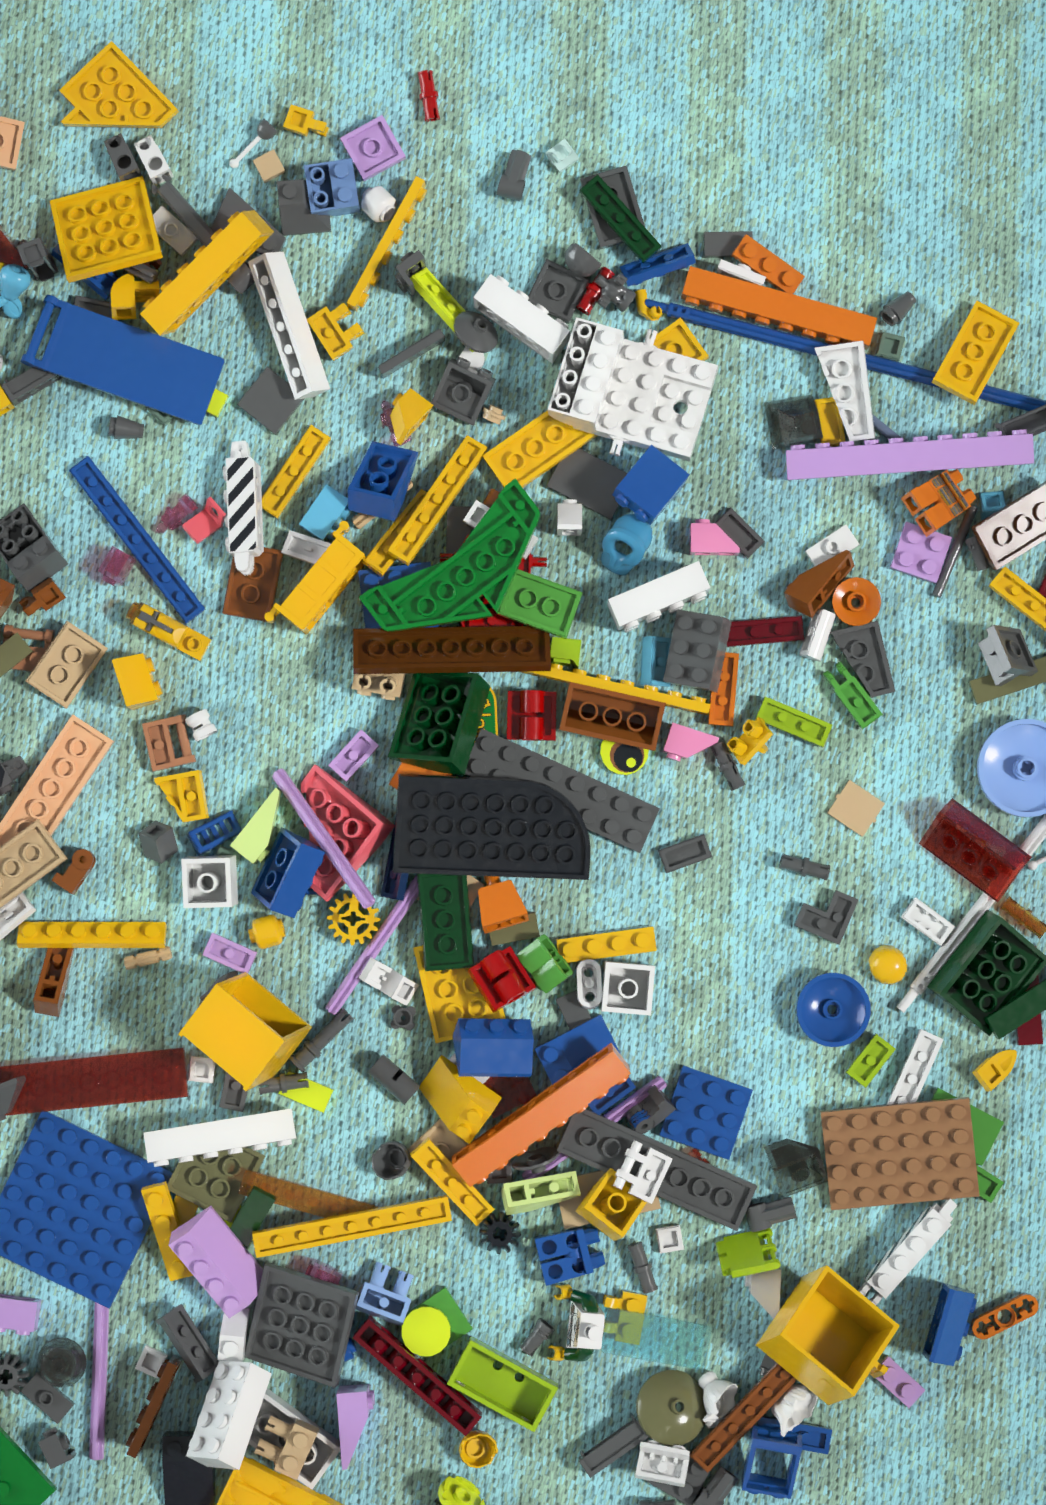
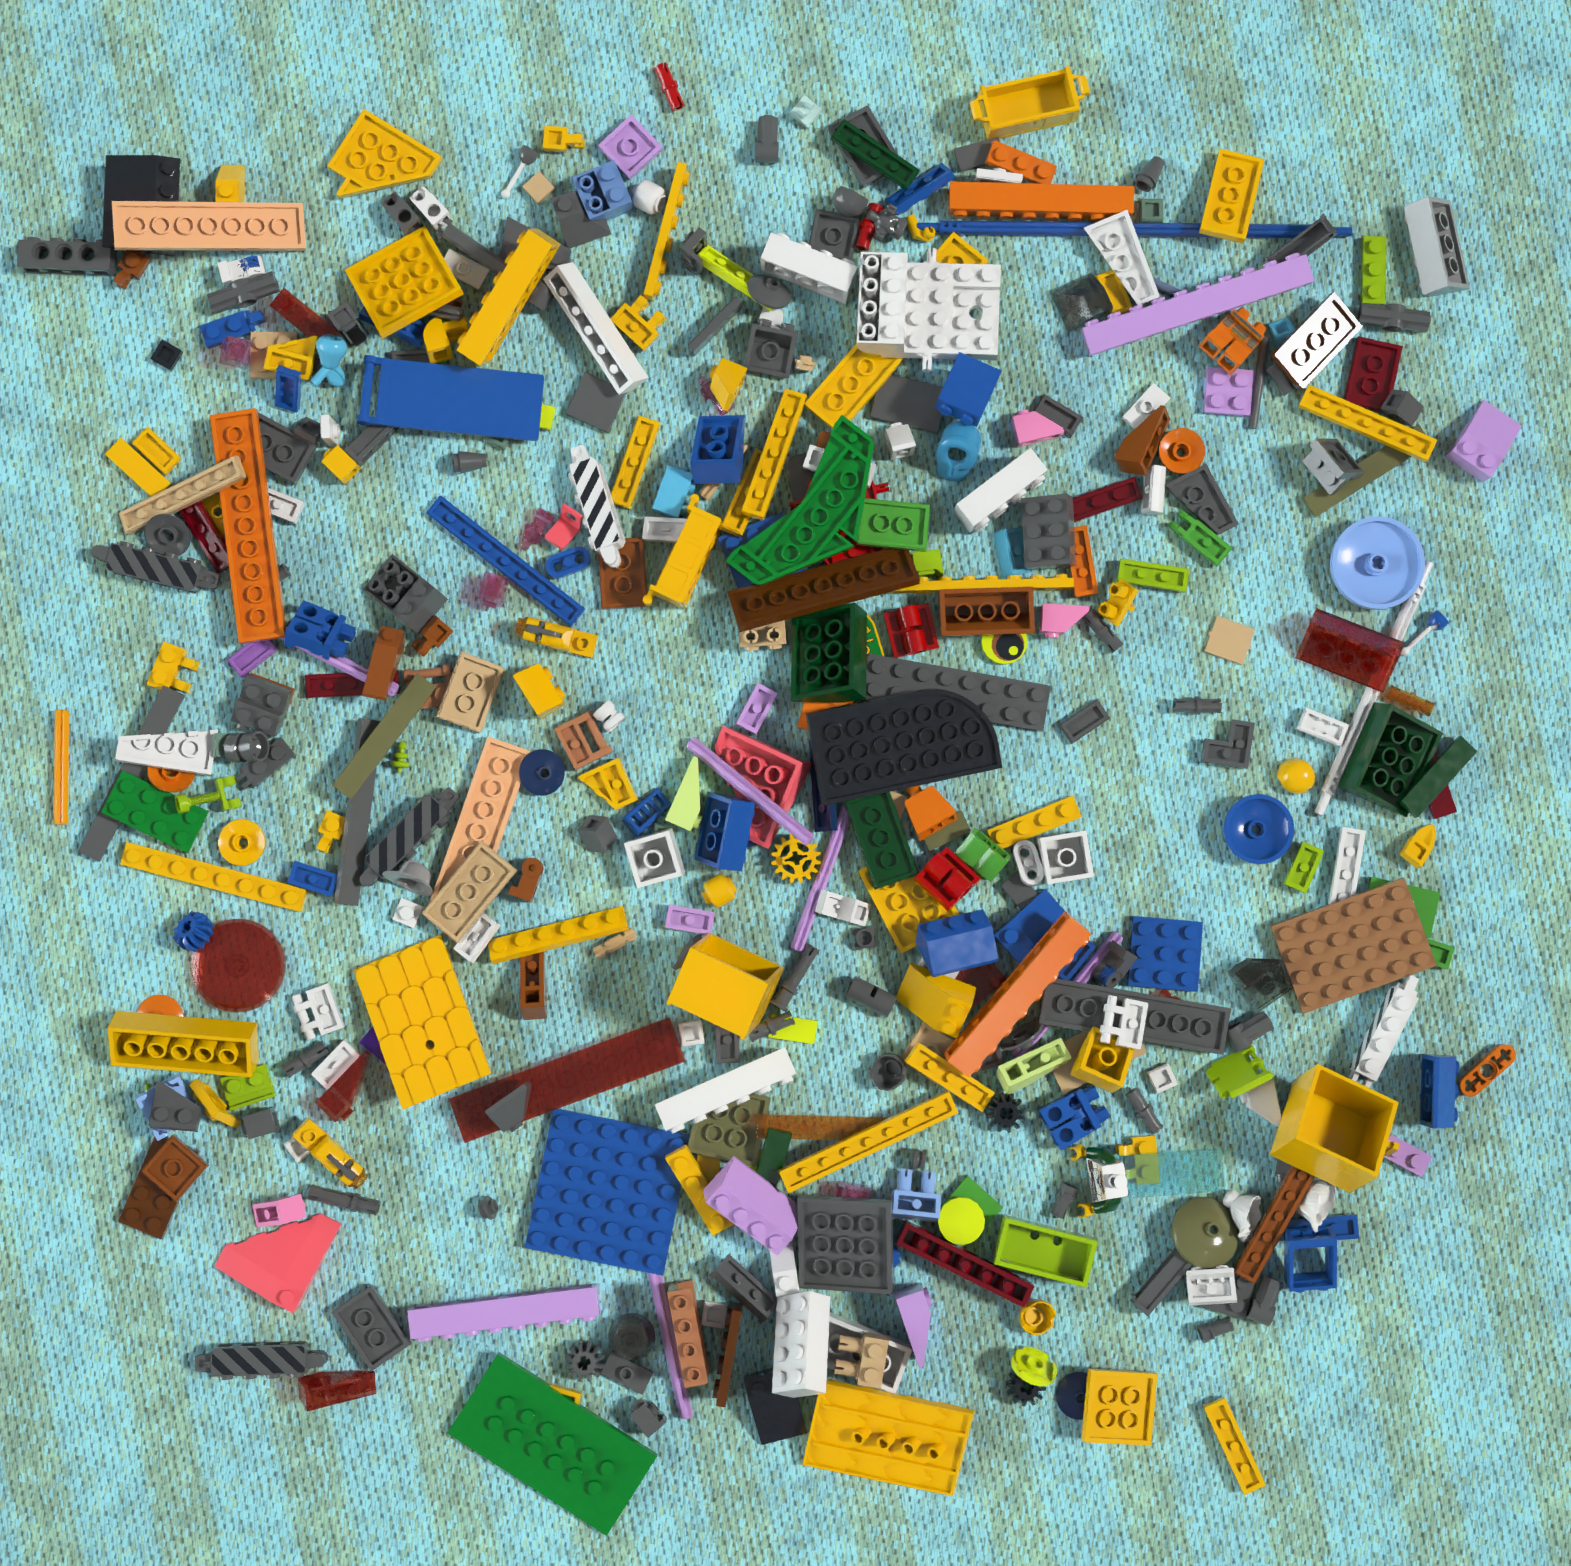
camera: 20 degrees left, 0 degrees up
(109, 756) = (530, 772): none -> dark blue dish
(118, 1373) = (688, 1333): none -> nougat panel
(200, 557) = (568, 562): none -> blue plate
(399, 1257) = (918, 1159): none -> dark grey bush
(791, 205) = (1029, 103): none -> yellow container

